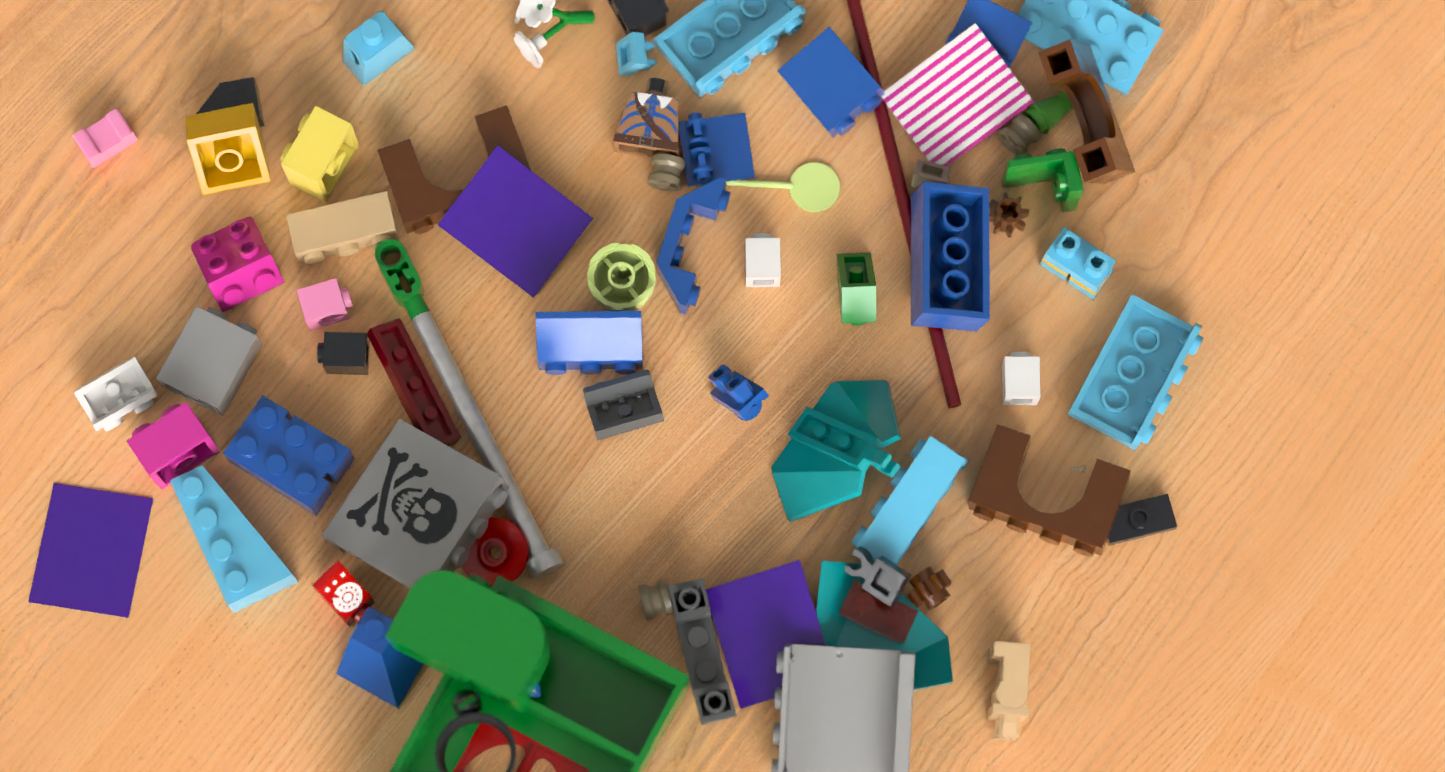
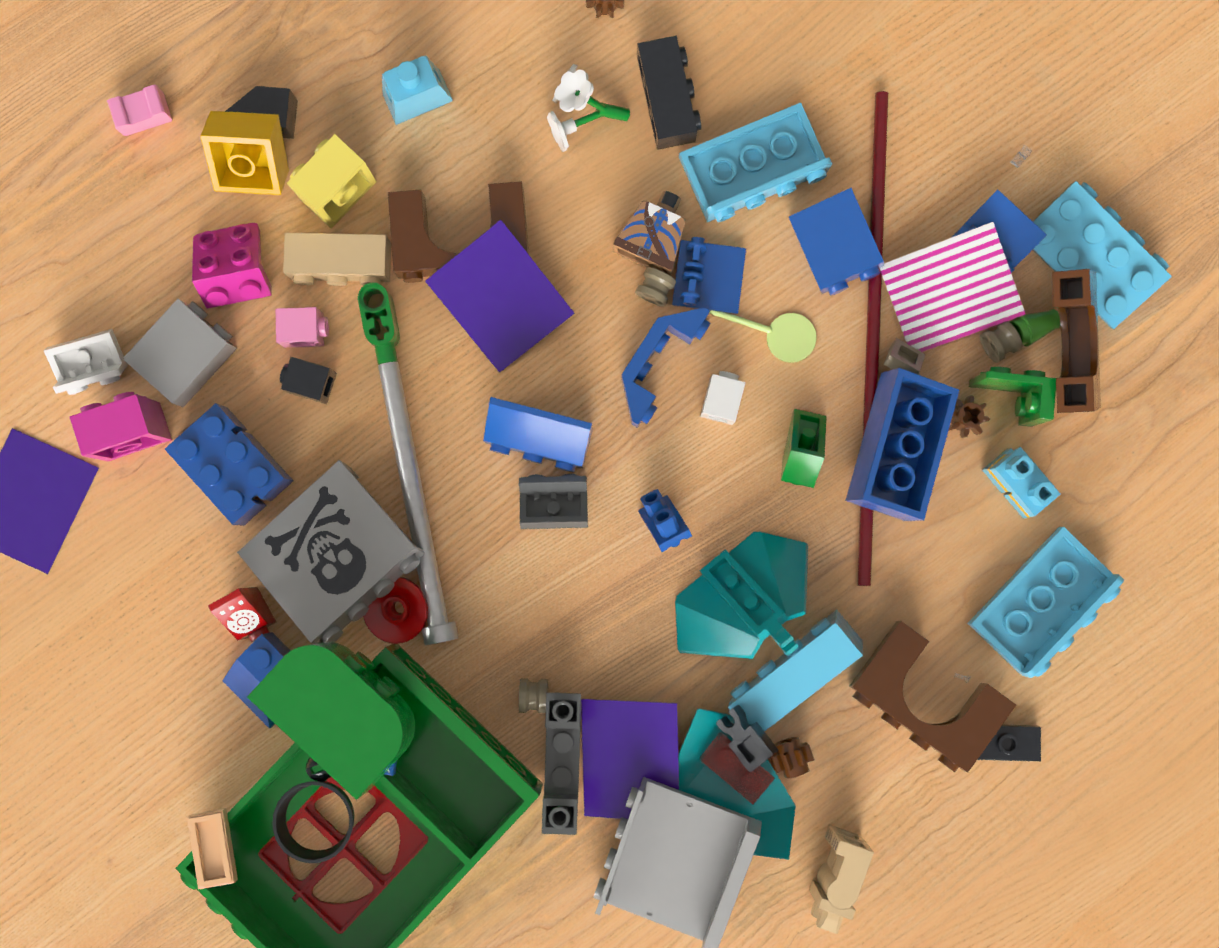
camera: 15 degrees right, 10 degrees up
(233, 548) = (152, 530): medium azure wedge -> none
(412, 381) = (363, 427): dark red plate -> none
(621, 277) = (584, 380): yellowish green cylinder -> none
(632, 54) = (655, 162): medium azure tile -> none
(1020, 379) = (934, 579): white brick -> none

